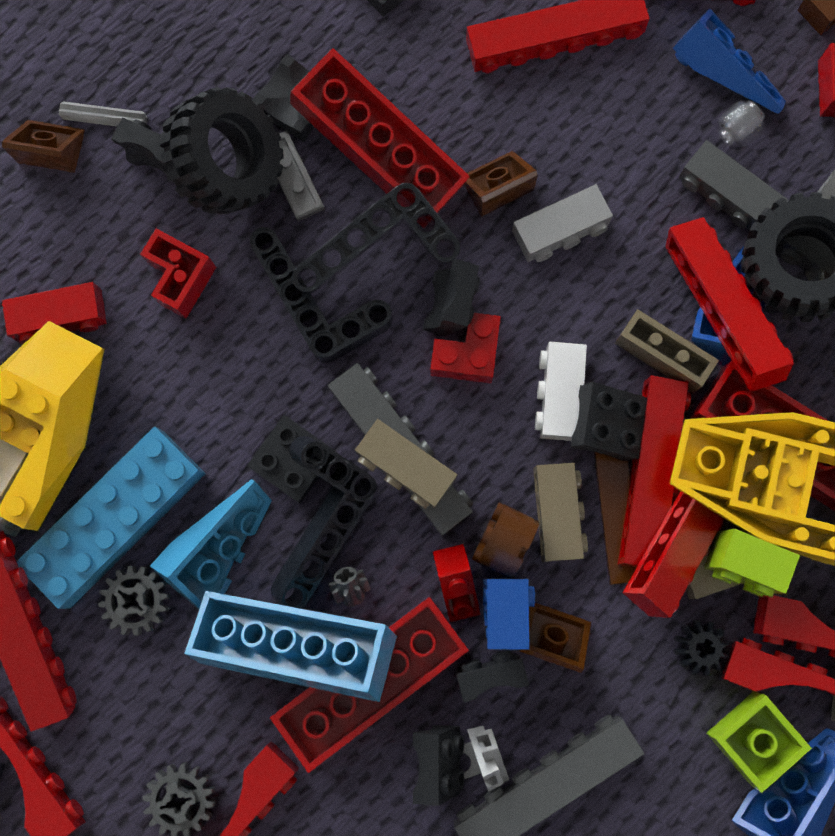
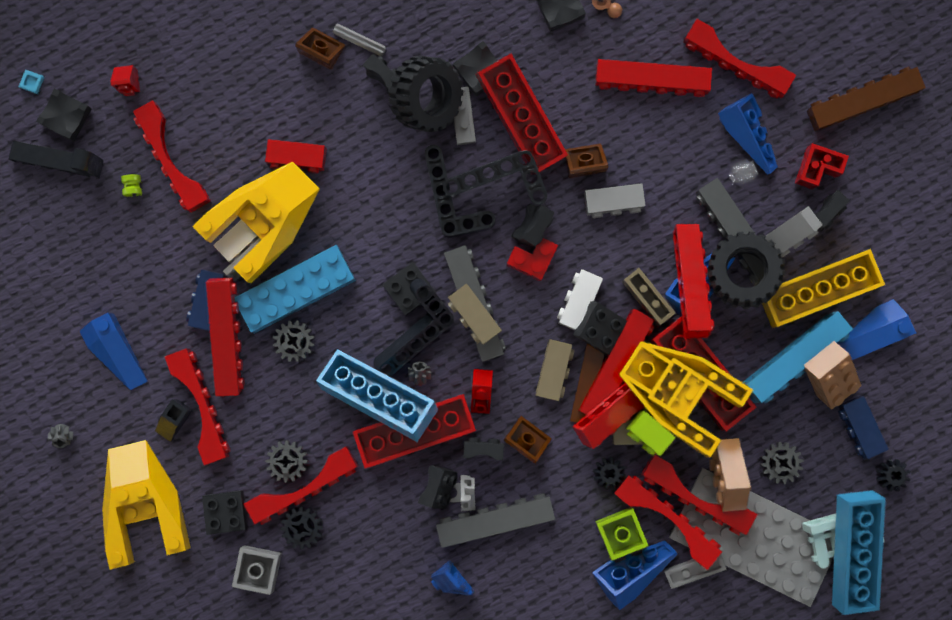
camera: 15 degrees right, 5 degrees up
(184, 272) = (381, 155): red brick -> none
(207, 550) = (344, 325): dark azure wedge -> none
(506, 540) = (517, 376): reddish brown brick -> none
(507, 612) = (504, 416): blue wedge -> none

